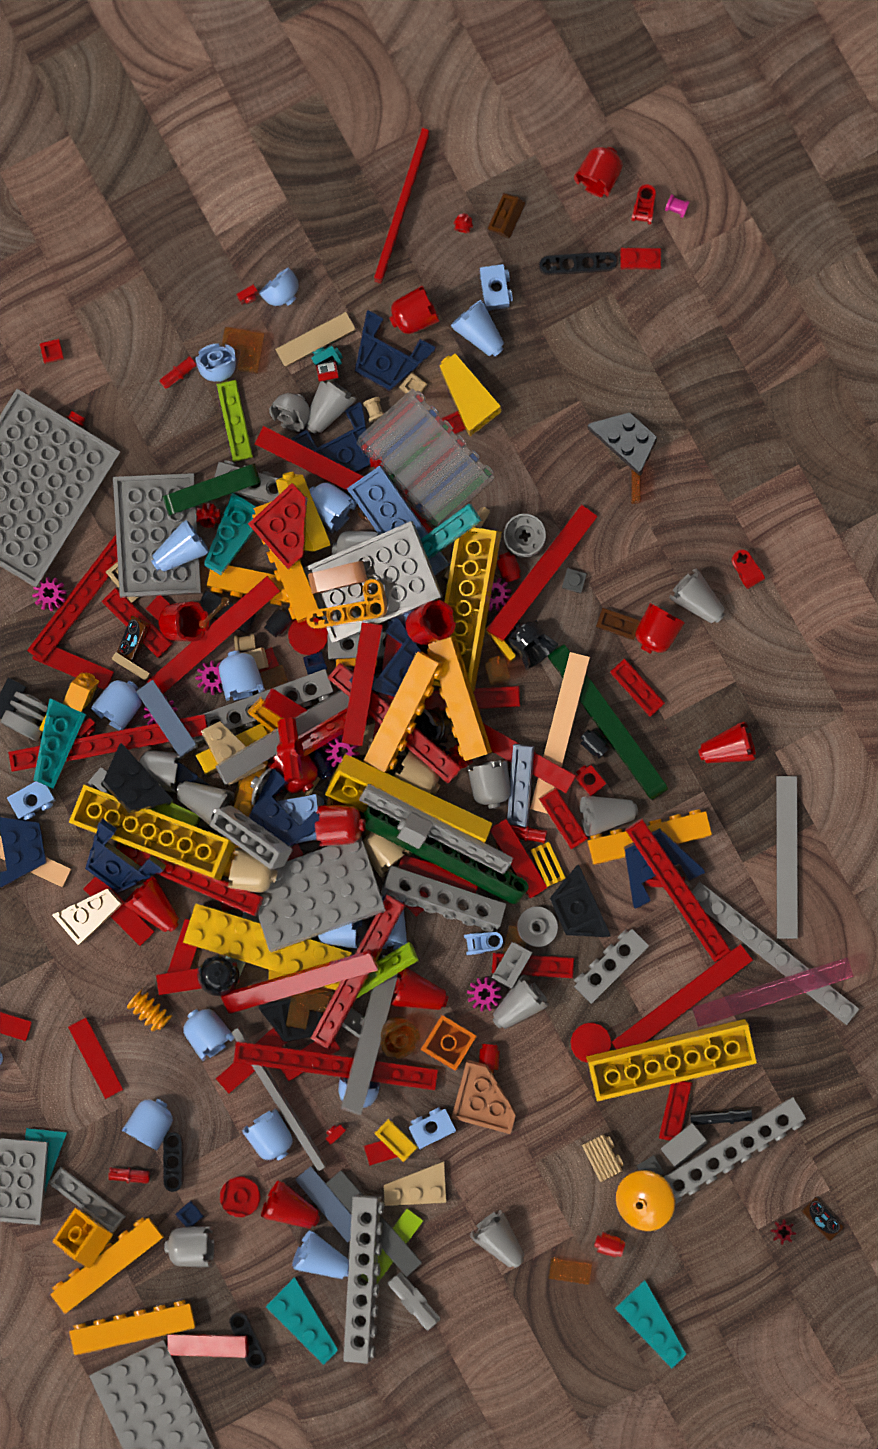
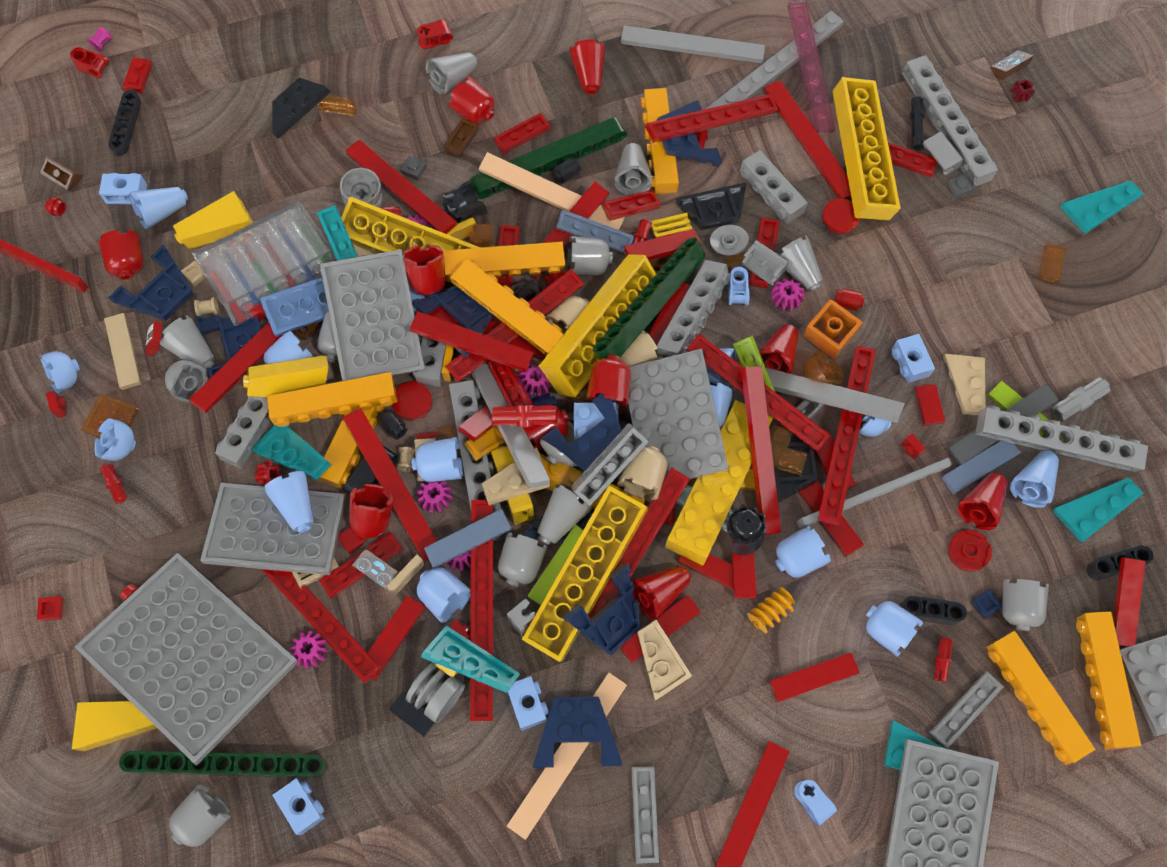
camera: 85 degrees left, 15 degrees down
(81, 691) = (420, 627): light orange brick -> none
(82, 1238) = (1013, 716): light orange brick -> none
(133, 784) = (531, 581): black wing -> none
(211, 489) = (240, 461): dark green beam -> none
(224, 602) = (360, 468): clear orange hinge -> none
(234, 421) = (179, 437): lime tile -> none
(269, 1136) = (911, 508): light blue cylinder -> none
(284, 525) = (294, 387): red plate -> none
(314, 663) = (441, 396): dark blue tile -> none
(322, 354) = (137, 345): teal bracket -> none
(337, 577) = (359, 346): beam -> none
(346, 610) = (394, 340): light orange beam -> none
(396, 1140) = (922, 391): yellow tile -> none
(413, 830) = (627, 311): light grey brick -> none
(439, 830) = (625, 299): light grey tile -> none
(483, 1100) = (889, 309): nougat plate -> none
(499, 1239) = (1019, 316): light grey cone -> none
(590, 789) = (600, 172): red brick -> none
(599, 171) = (46, 87): red cylinder -> none
(602, 1157) = (949, 219): tan brick -> none
(609, 1245) = (1030, 225): red brick -> none
(655, 1196) = (982, 188): light orange dish -> none

